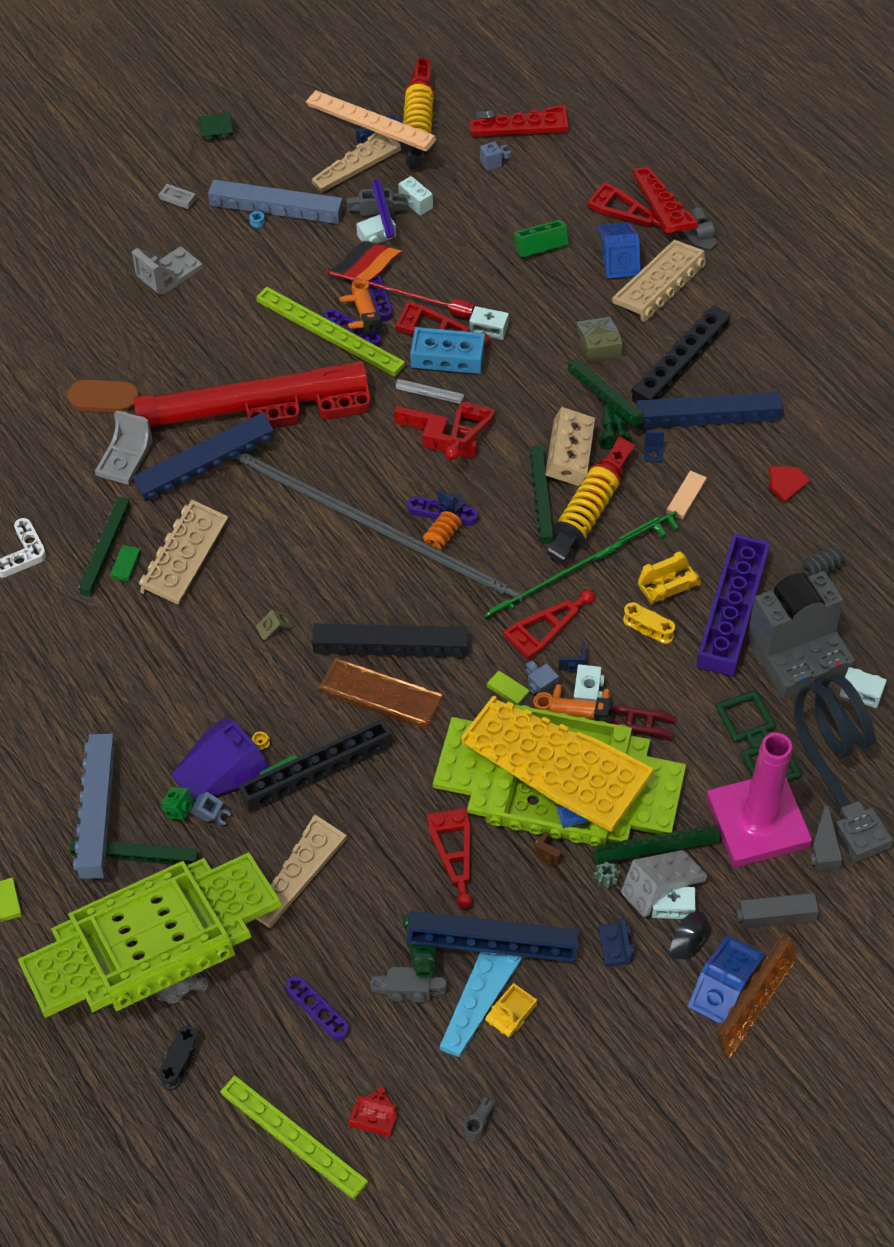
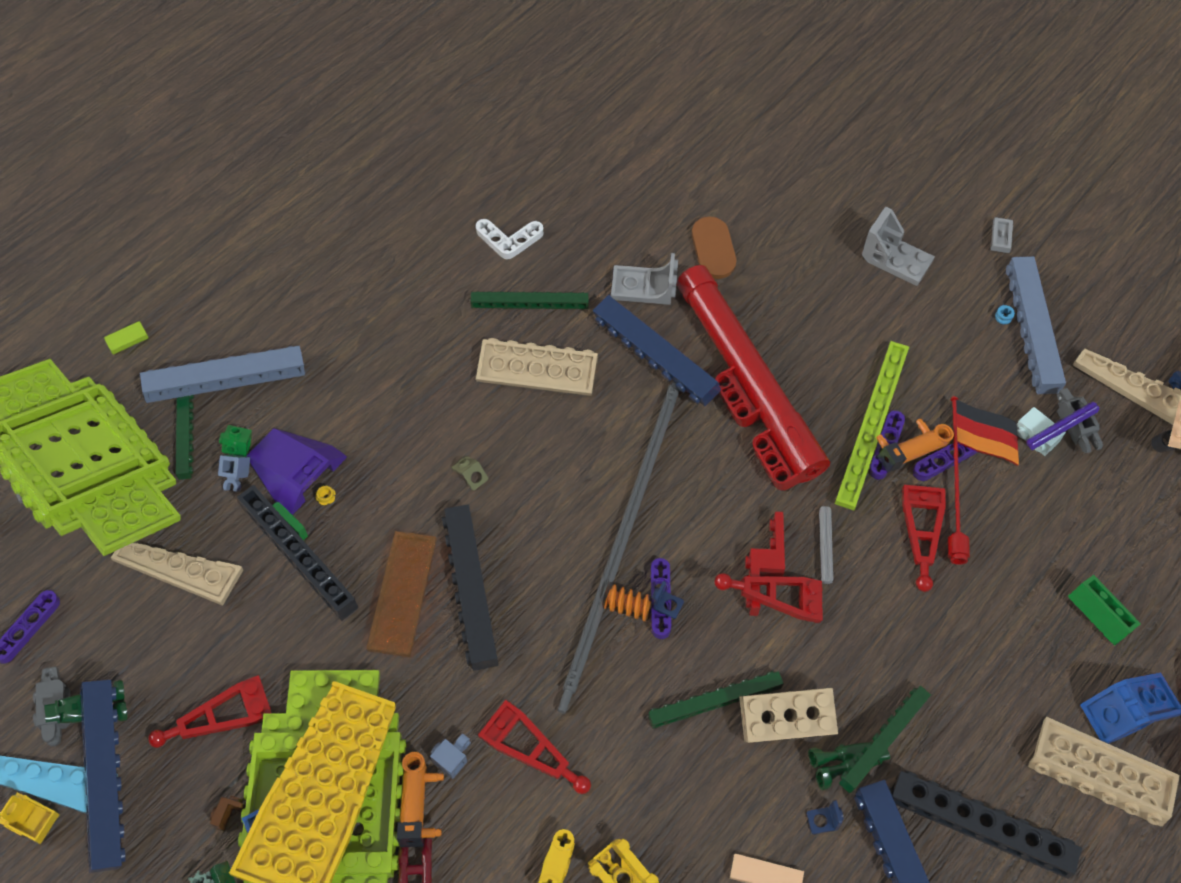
camera: 75 degrees right, 5 degrees up
(125, 563) = (514, 323): green tile -> none
(215, 125) = (1118, 239): dark green slope -> none
(417, 196) = (1109, 458): light aqua brick -> none
(447, 350) = (886, 547): dark azure brick -> none
(489, 322) = (949, 583): light aqua brick -> none
(508, 688) = (436, 723): lime tile -> none
(571, 663) = (489, 797): dark blue bracket -> none
(588, 677) = (438, 804): light aqua brick -> none
(589, 501) = (742, 761): piece -> none
(599, 339) = (976, 715): olive slope -> none
(654, 523) = (705, 841): green piece -> none

